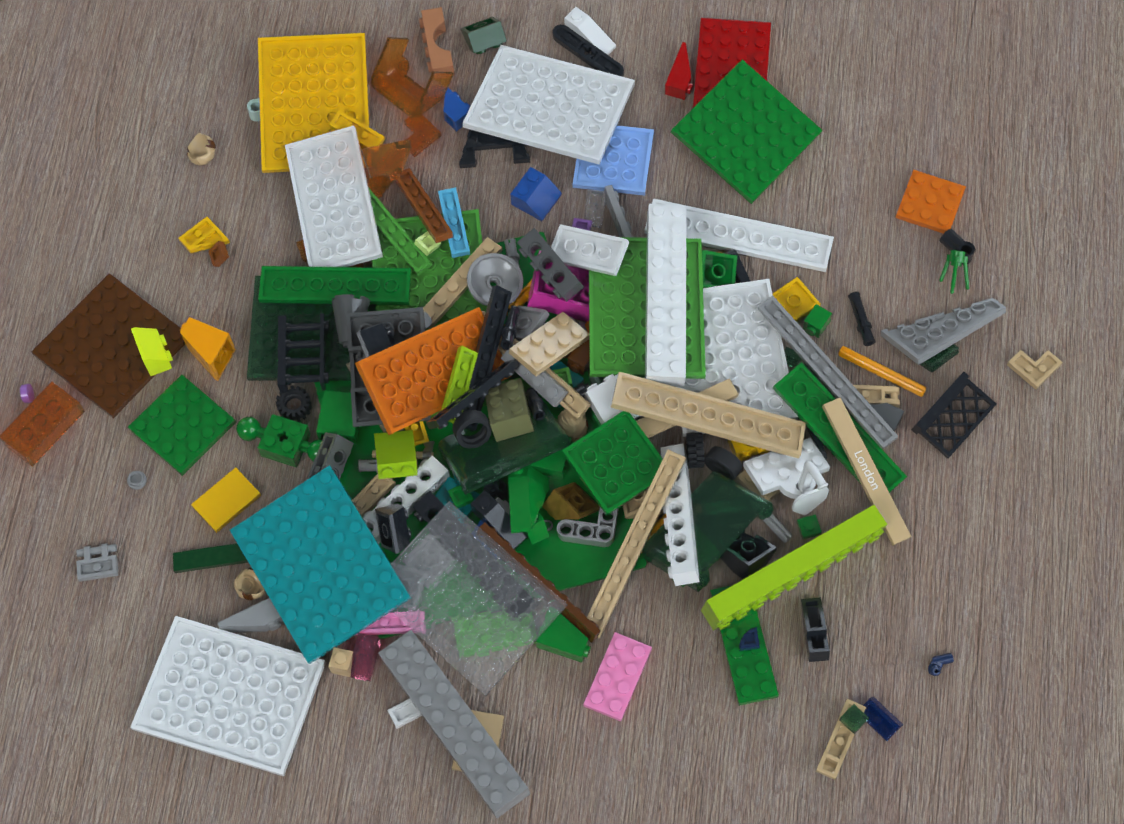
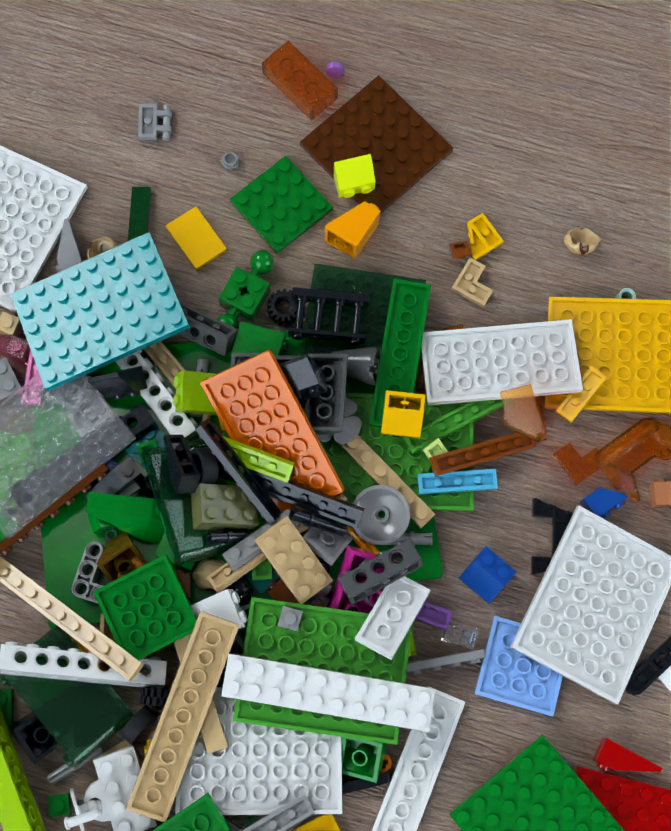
camera: 90 degrees right, 10 degrees up
(255, 243) = (467, 284): none -> tan plate
(396, 268) = (403, 414): none -> yellow slope
(473, 448) = (181, 464): none -> black slope
(604, 336) = (290, 618): none -> light grey plate

